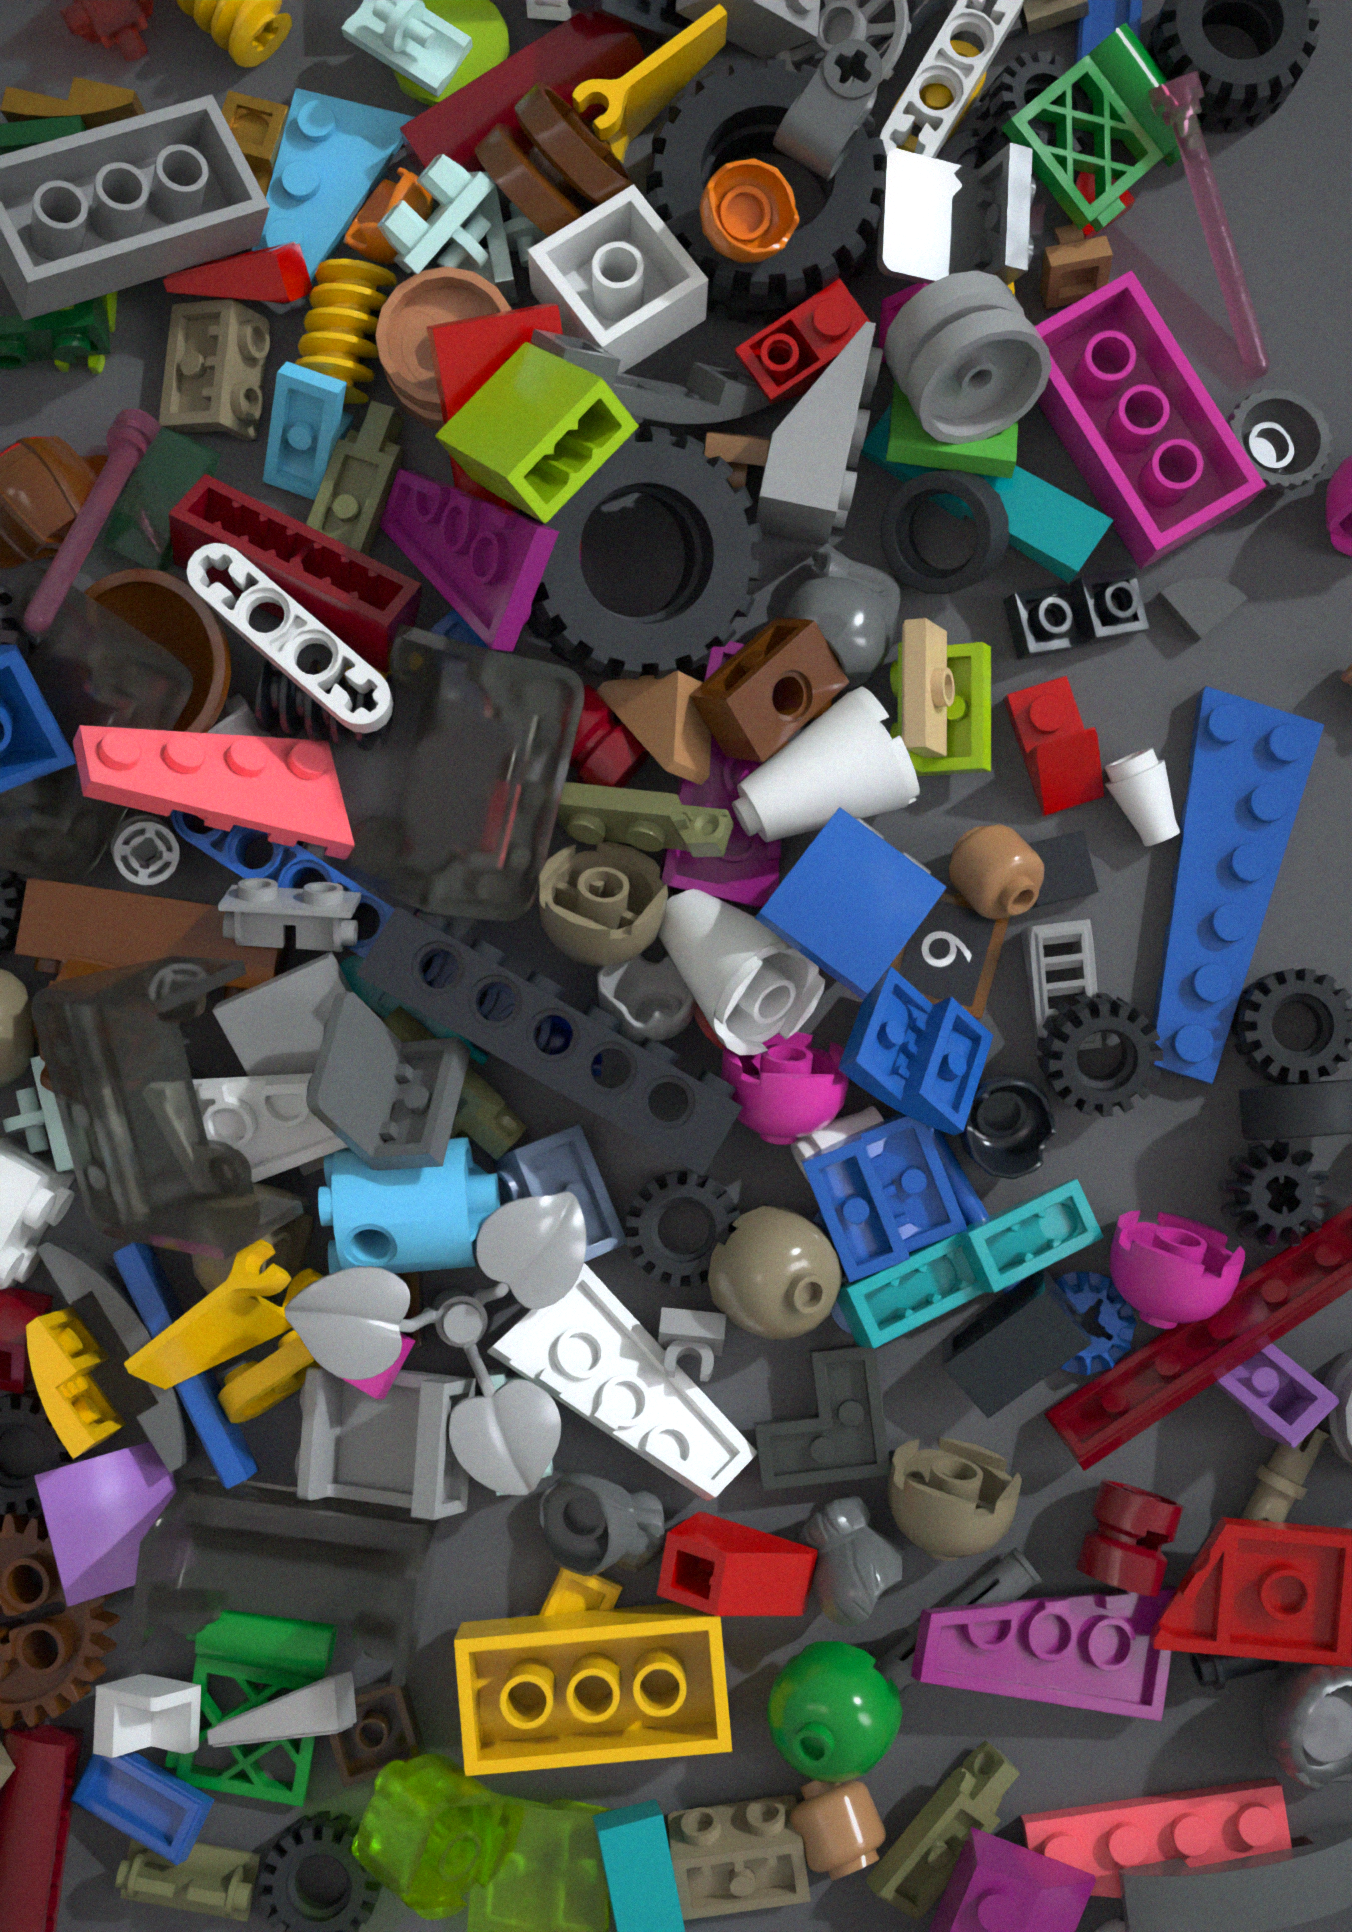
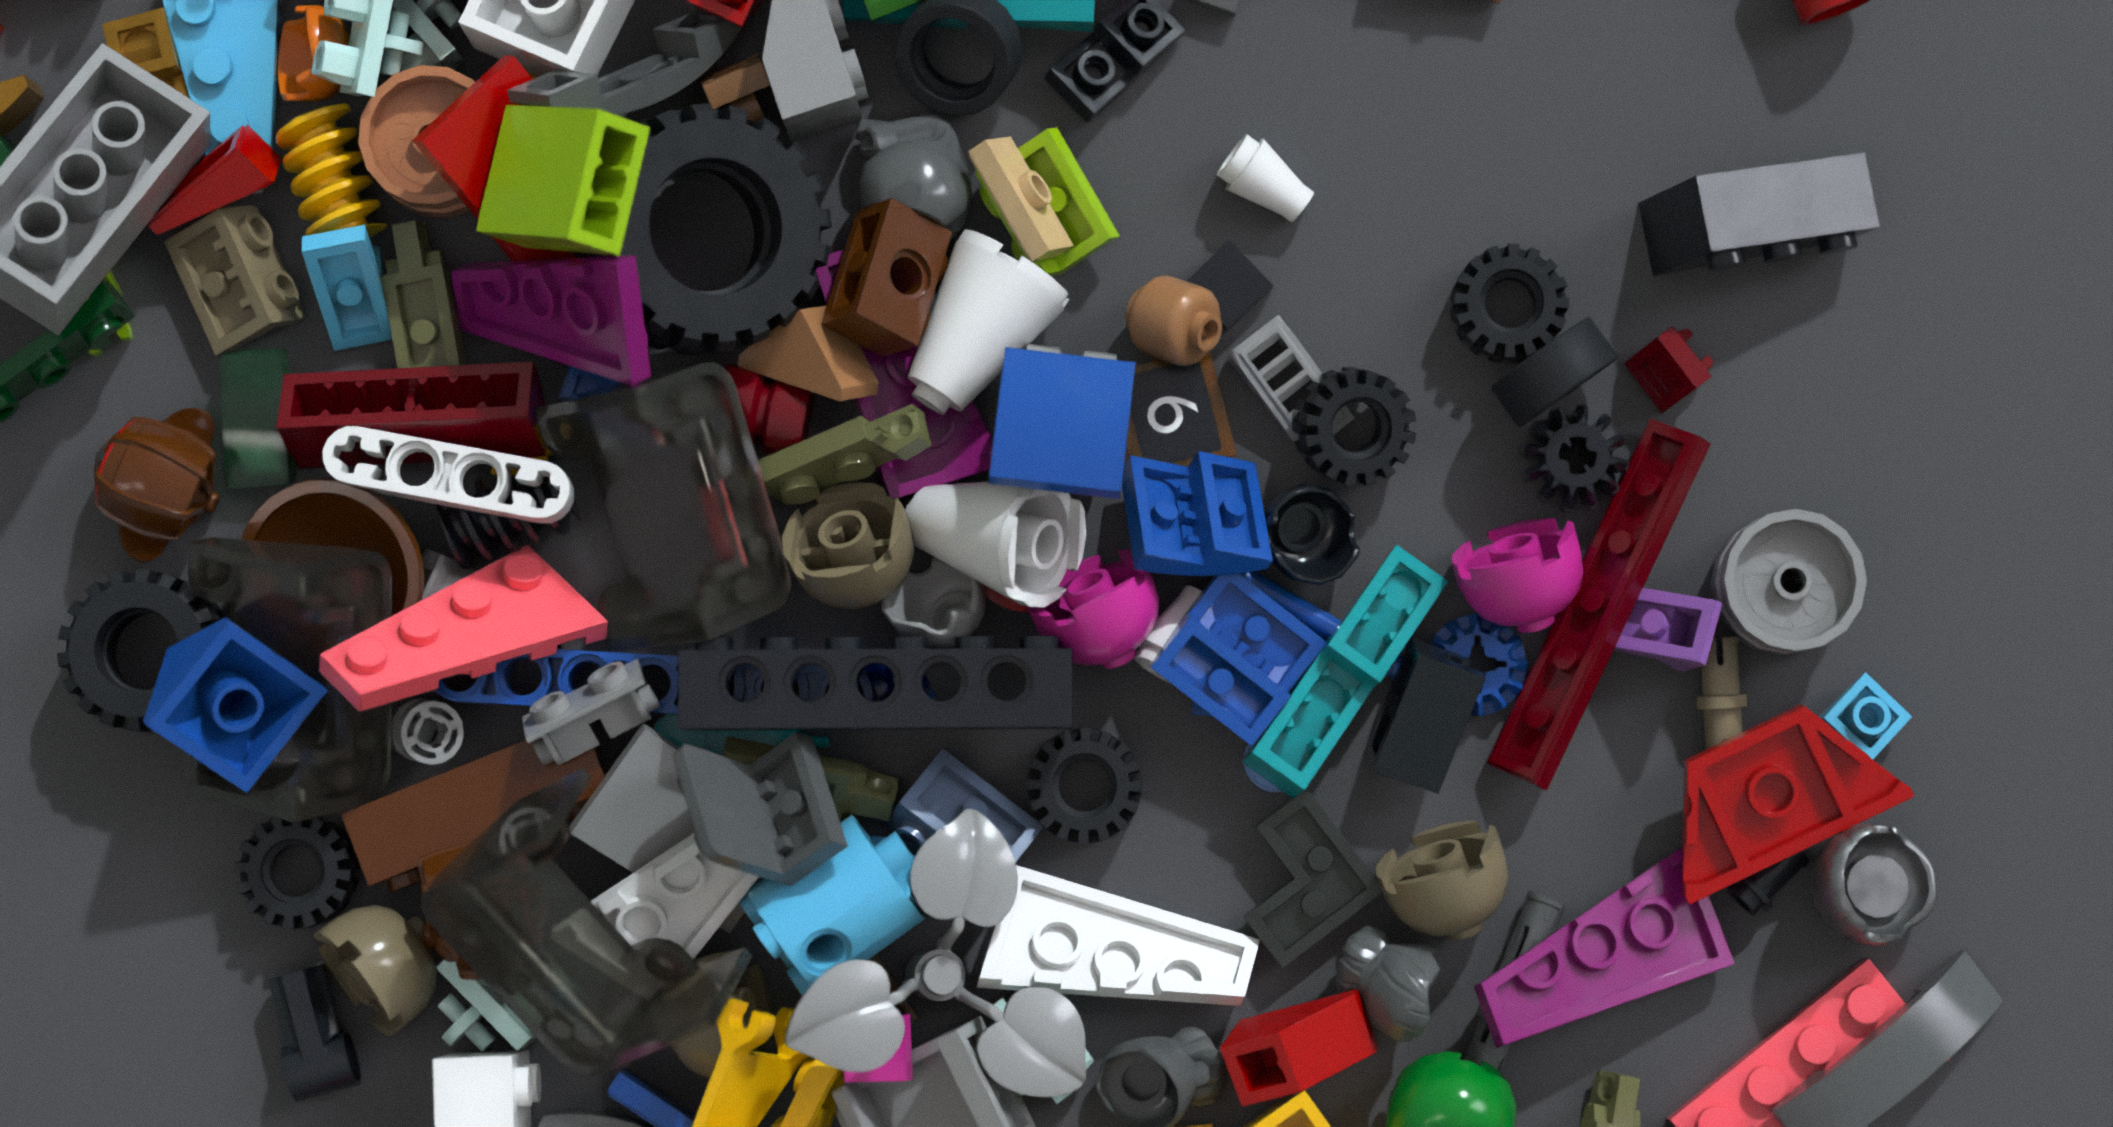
camera: 25 degrees left, 0 degrees up
(127, 444) = (199, 385): clear pink piece -> none
(691, 1333) = (1144, 870): light grey tile -> none
(775, 1274) = (1185, 776): dark tan cylinder -> none
(1056, 746) = (1163, 180): red slope -> none
(1129, 1537) = (1617, 824): dark red wheel -> none
(1235, 827) = (1360, 160): blue wing -> none

